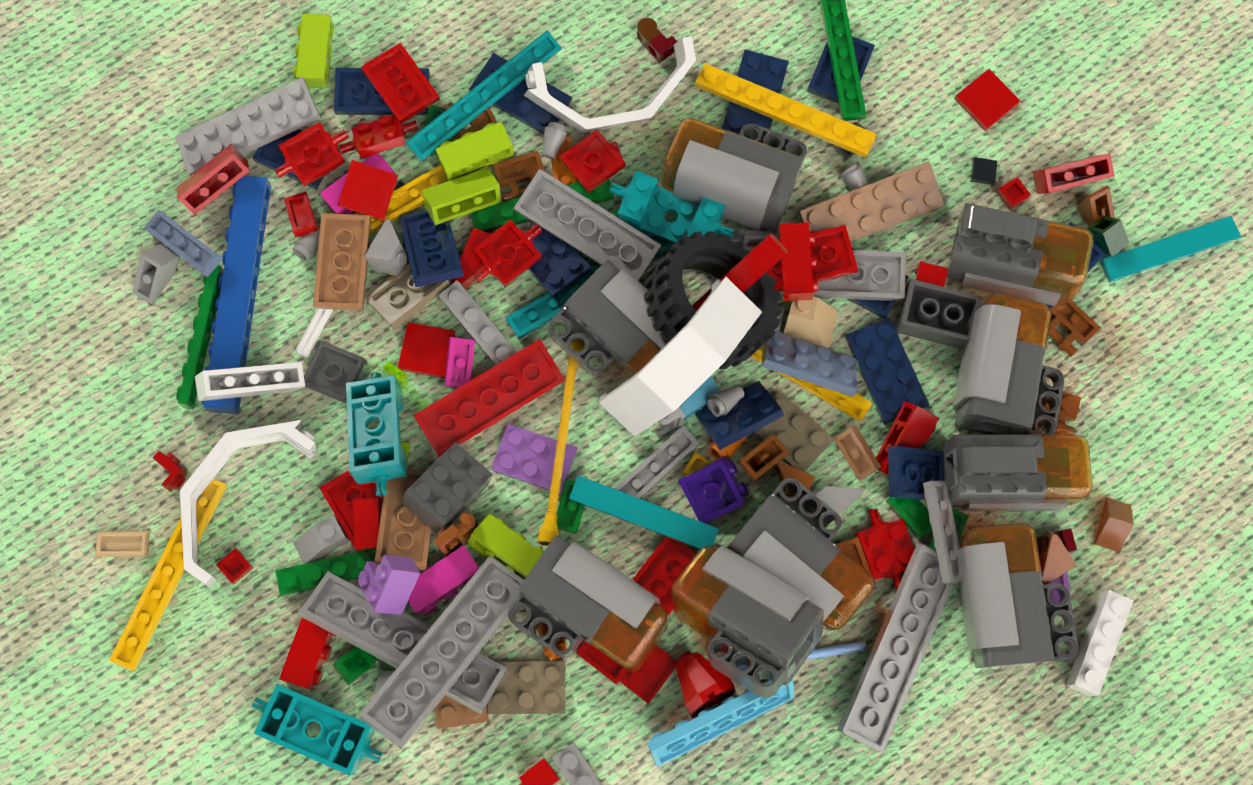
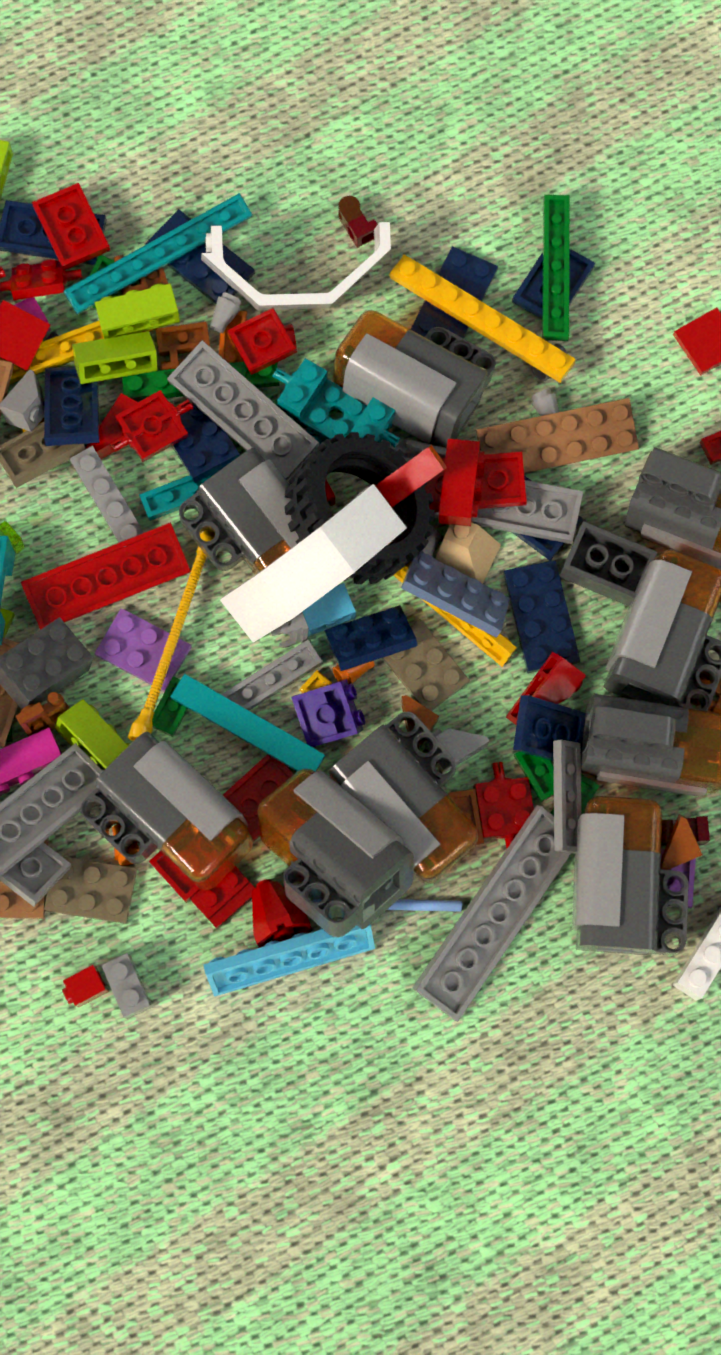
camera: 10 degrees right, 0 degrees up
(425, 350) = (49, 516): red tile -> none
(459, 362) = (81, 533): dark pink plate -> none
(723, 401) = (356, 619): light grey cone -> none
(763, 458) = (387, 688): dark orange slope -> none
(857, 452) = (491, 699): medium nougat plate -> none
(931, 274) = (608, 519): red panel -> none
(983, 171) = (689, 418): black tile -> none

